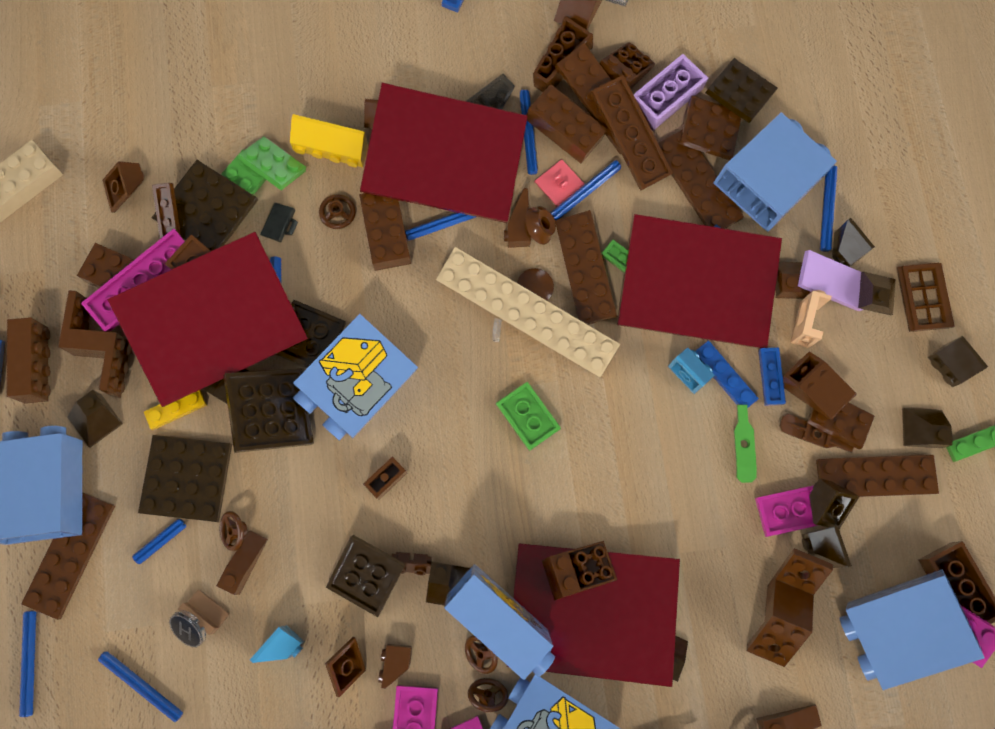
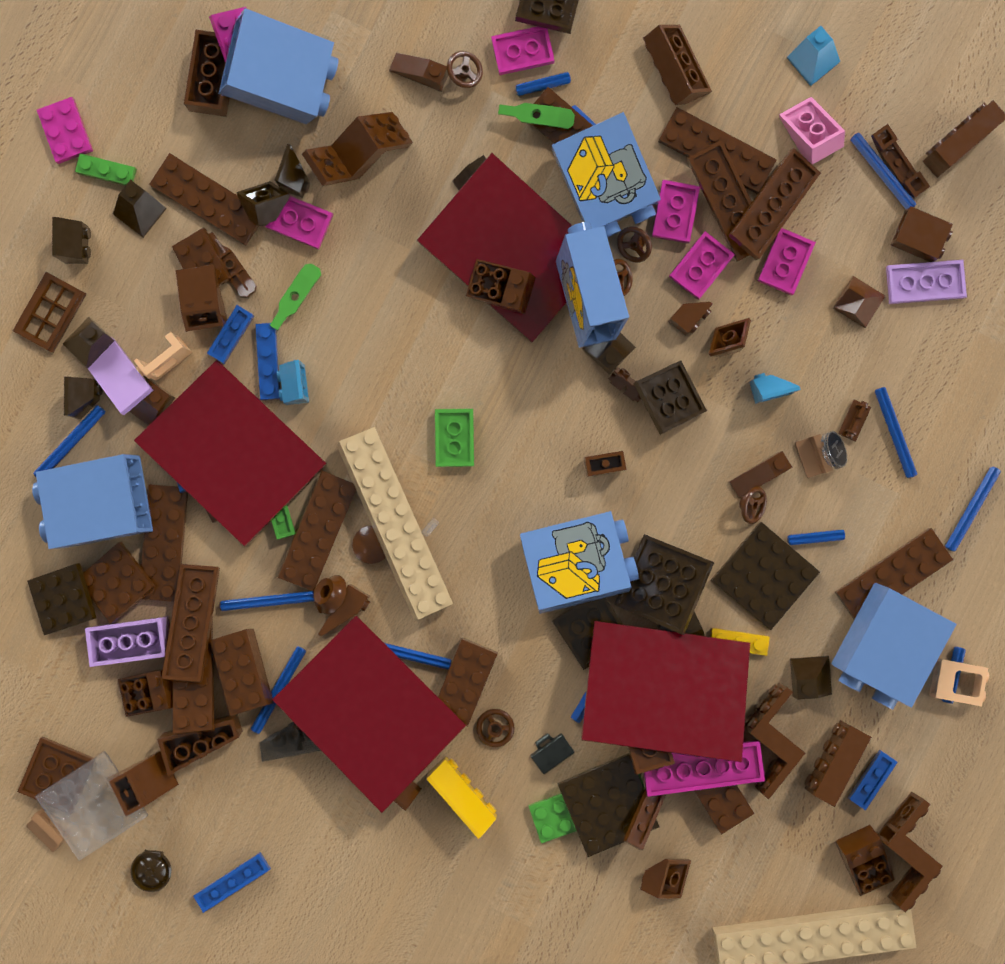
camera: 140 degrees left, 10 degrees up
(185, 671) = (854, 420): none -> reddish brown hinge
(272, 163) = (523, 811): bright green plate -> none
(559, 182) = (284, 623): coral piece -> none

